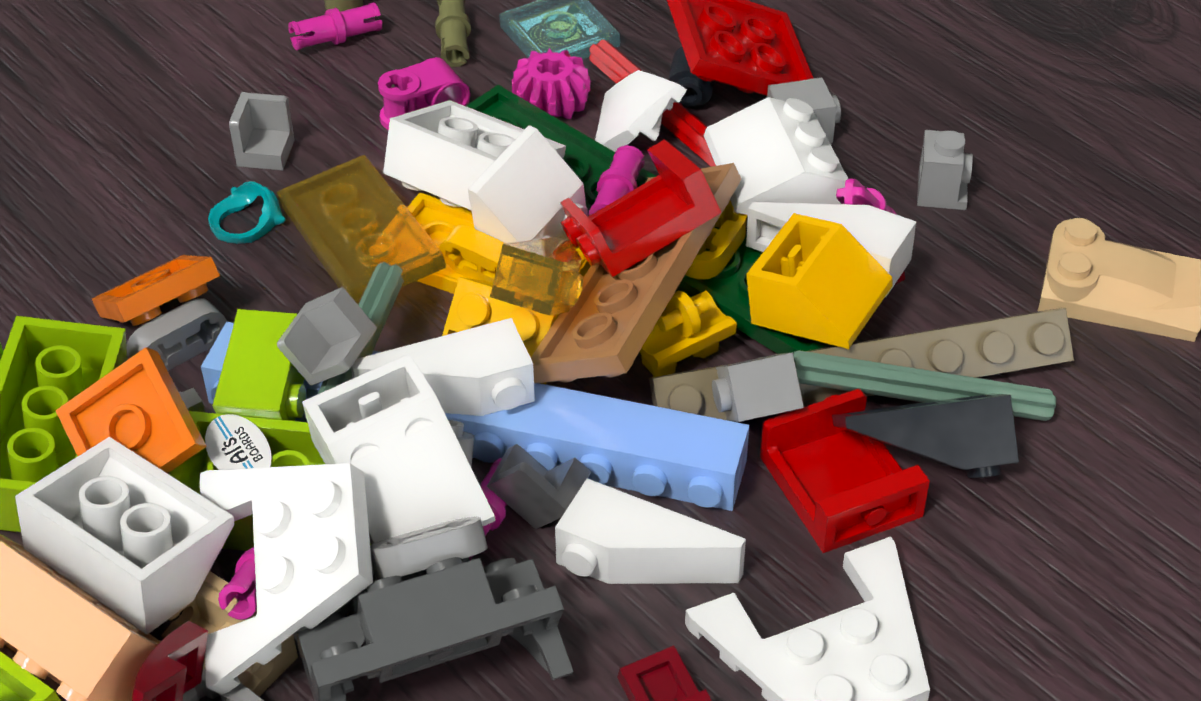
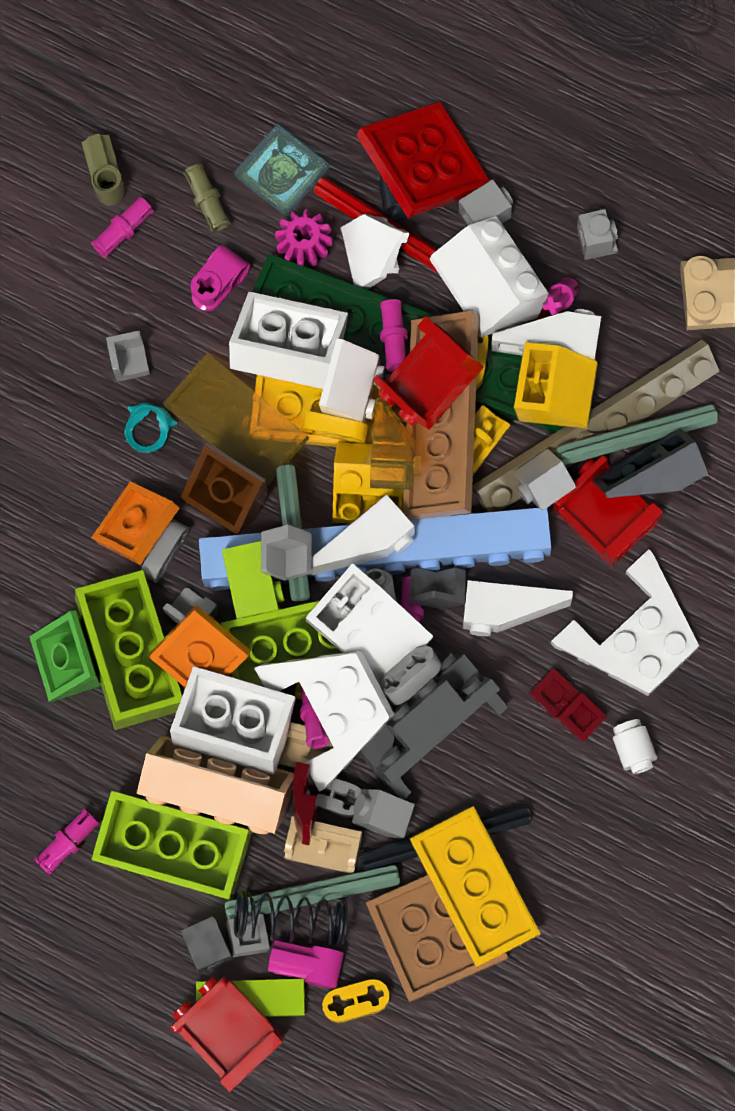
camera: 15 degrees left, 30 degrees up
(236, 444) = (263, 638): white sticker -> none
(293, 261) = (225, 489): none -> reddish brown slope

